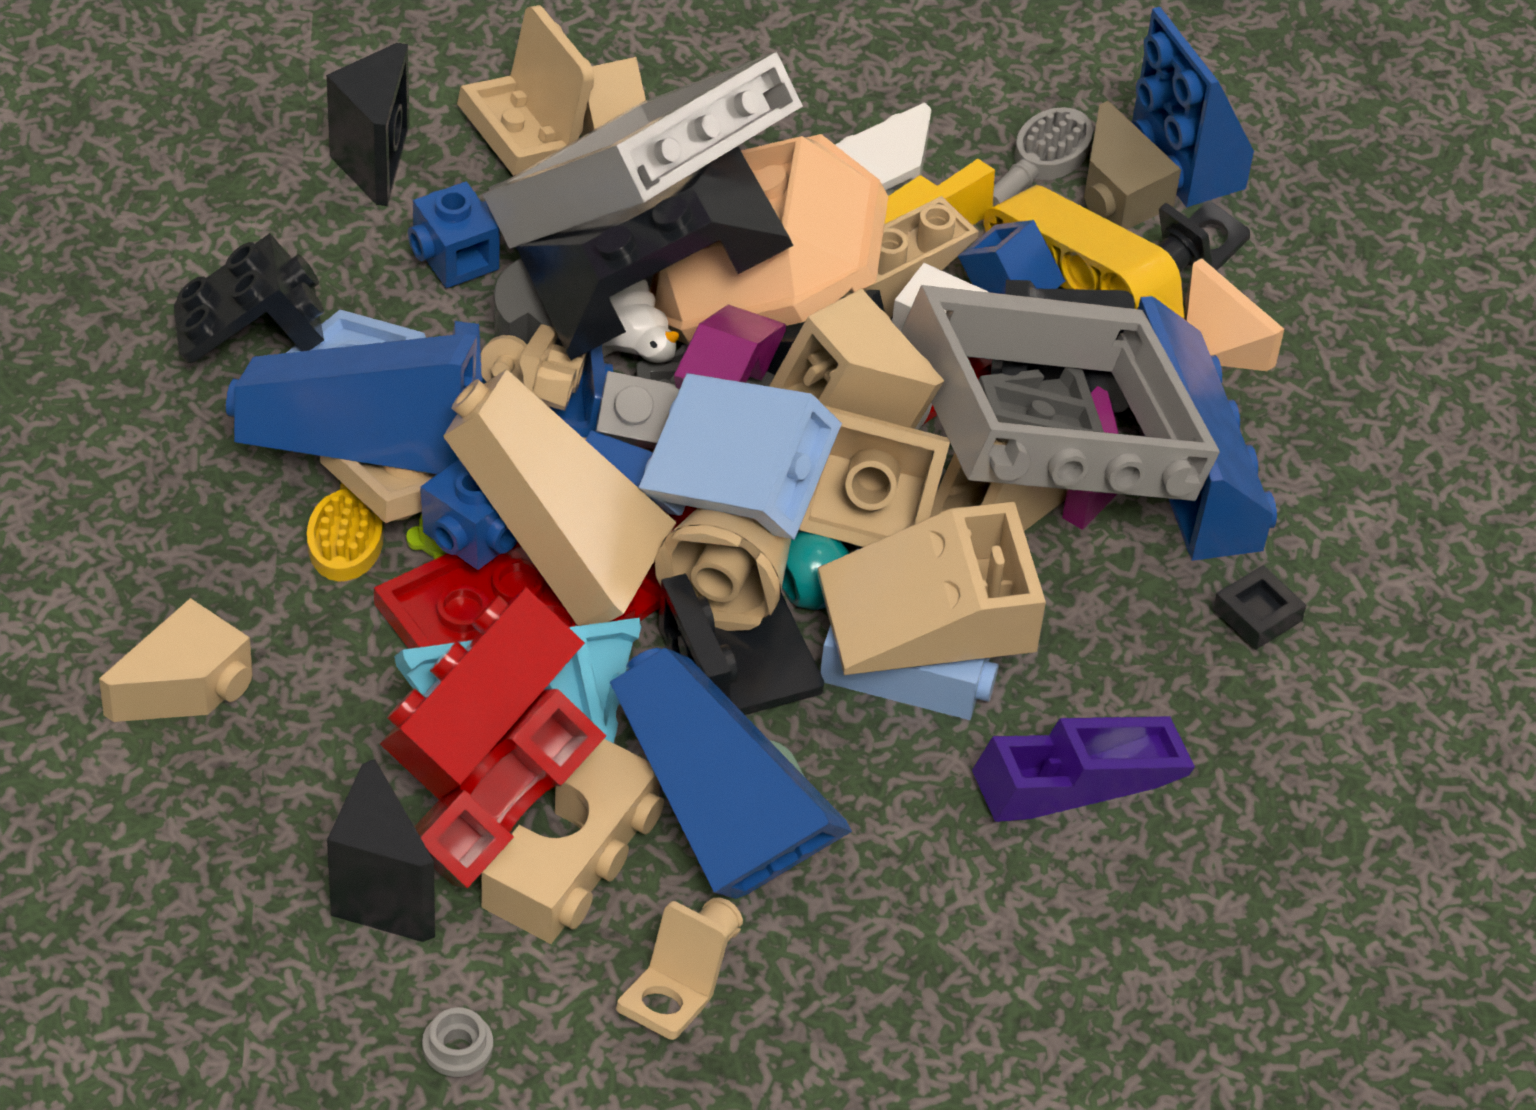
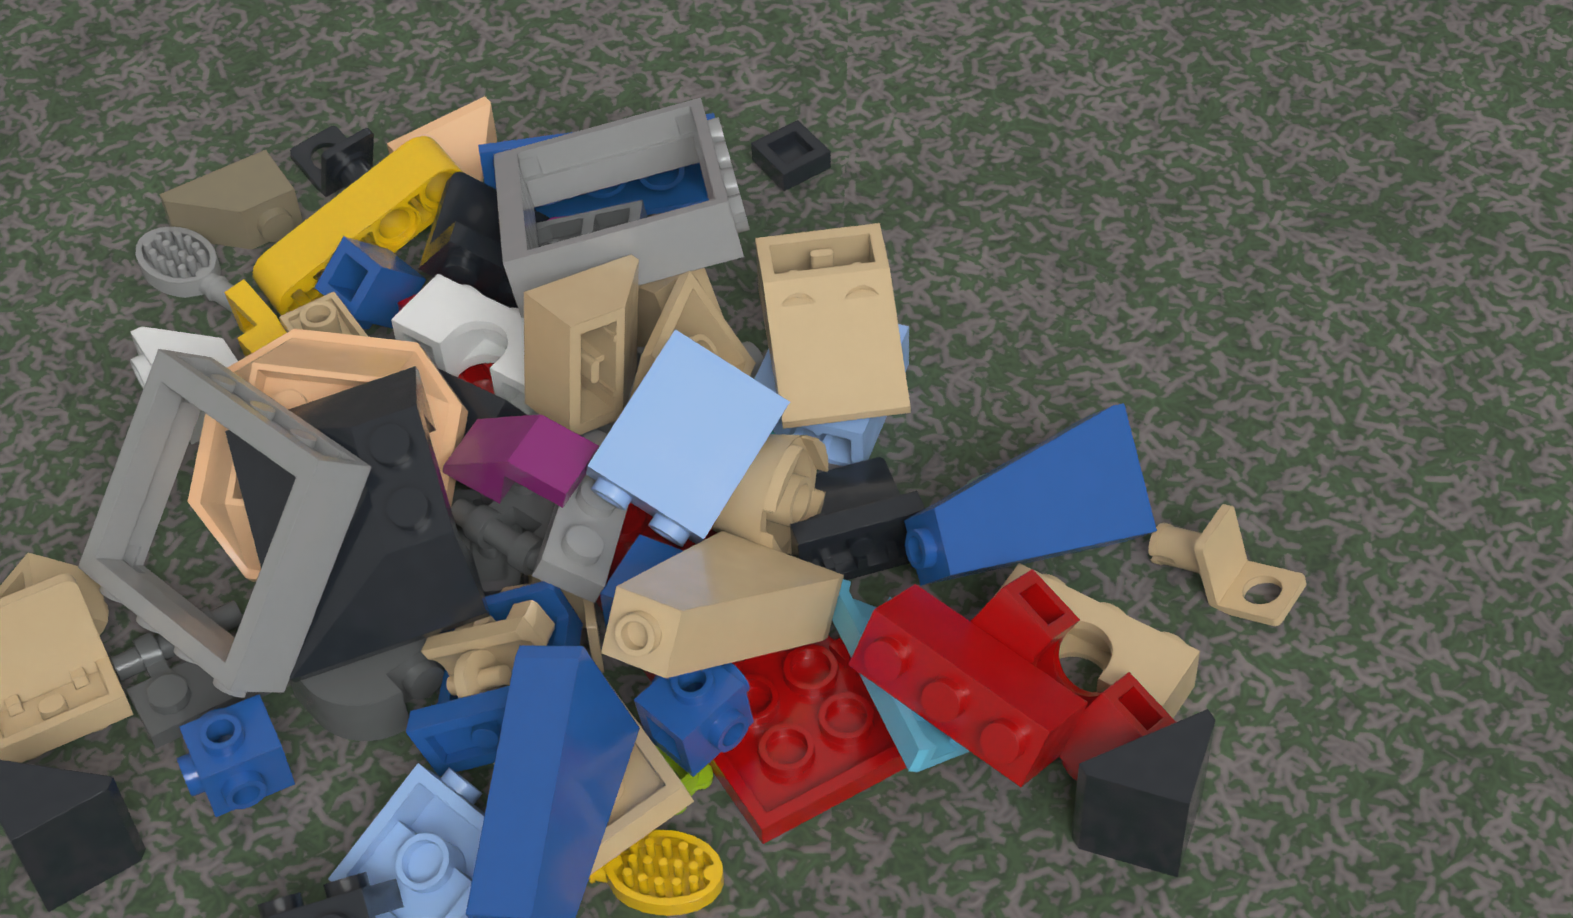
camera: 80 degrees left, 0 degrees up
(457, 1024) = (1337, 738): light grey plate -> none
(1079, 765) = (976, 283): dark purple slope -> none
(1189, 116) = (199, 117): blue slope -> none

